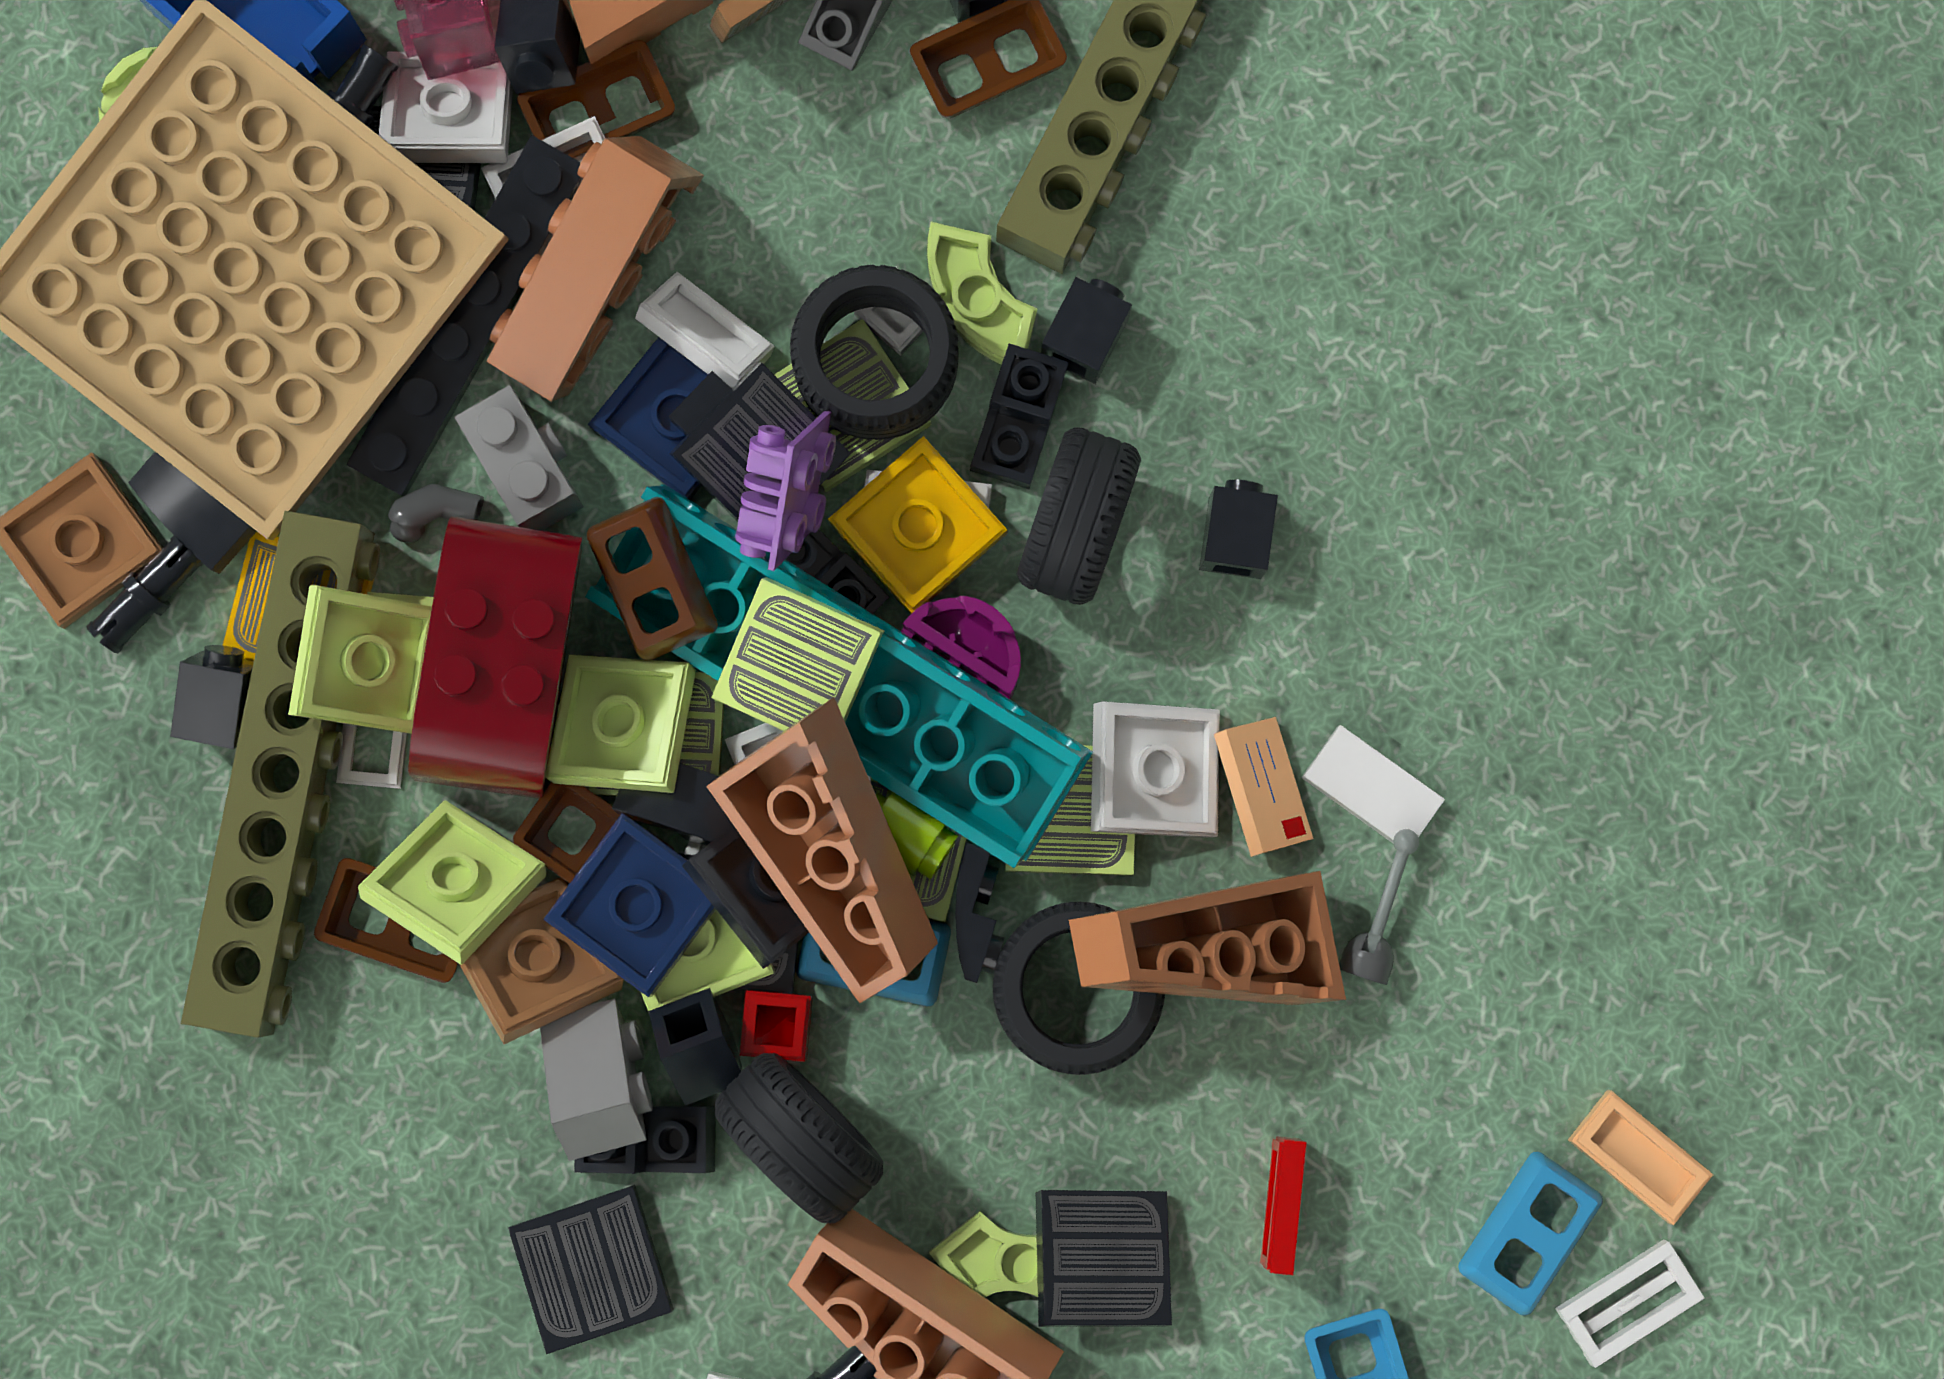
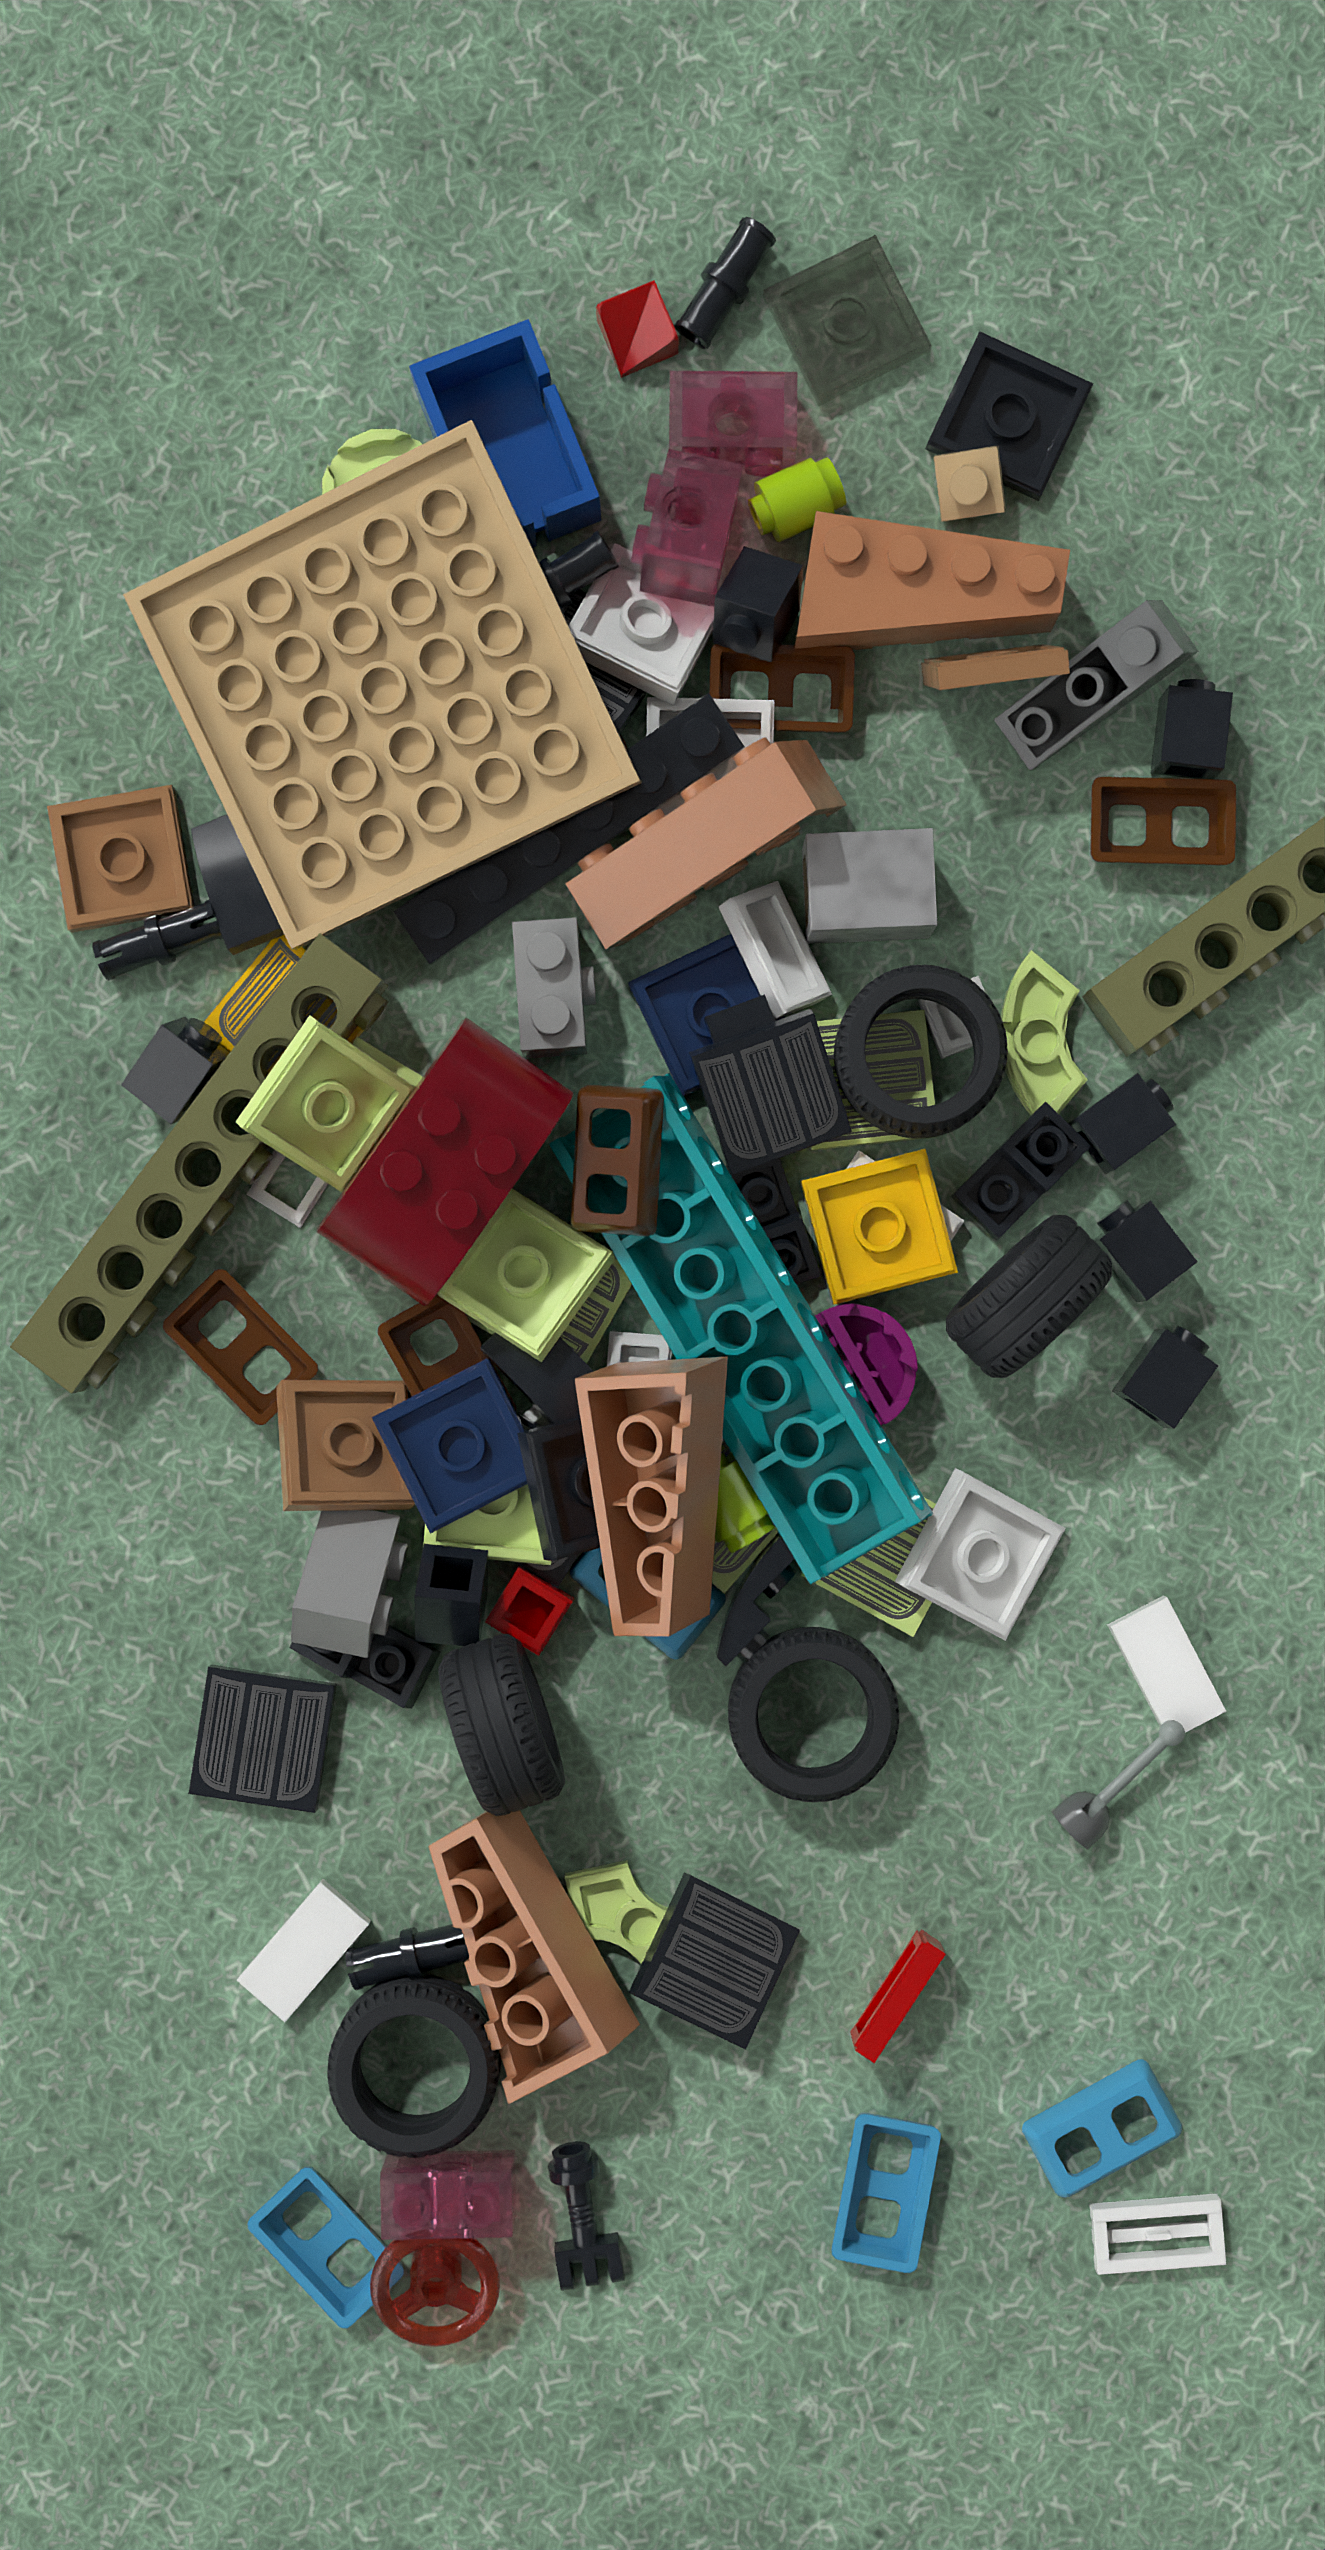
camera: 30 degrees right, 5 degrees up
(427, 504) = (449, 983): dark grey arm -> none
(452, 881) = (307, 1340): yellowish green tile -> none
(758, 233) = (869, 885): none -> flat silver piece
(785, 490) = (773, 1145): medium lavender hinge -> none
(795, 657) = (710, 1299): tile -> none
(1161, 429) = (1143, 1249): none -> black brick
(1229, 943) = (968, 1743): nougat wedge -> none
(1263, 786) = (1069, 1617): light nougat tile -> none
(1640, 1157) = (1234, 2113): light nougat tile -> none

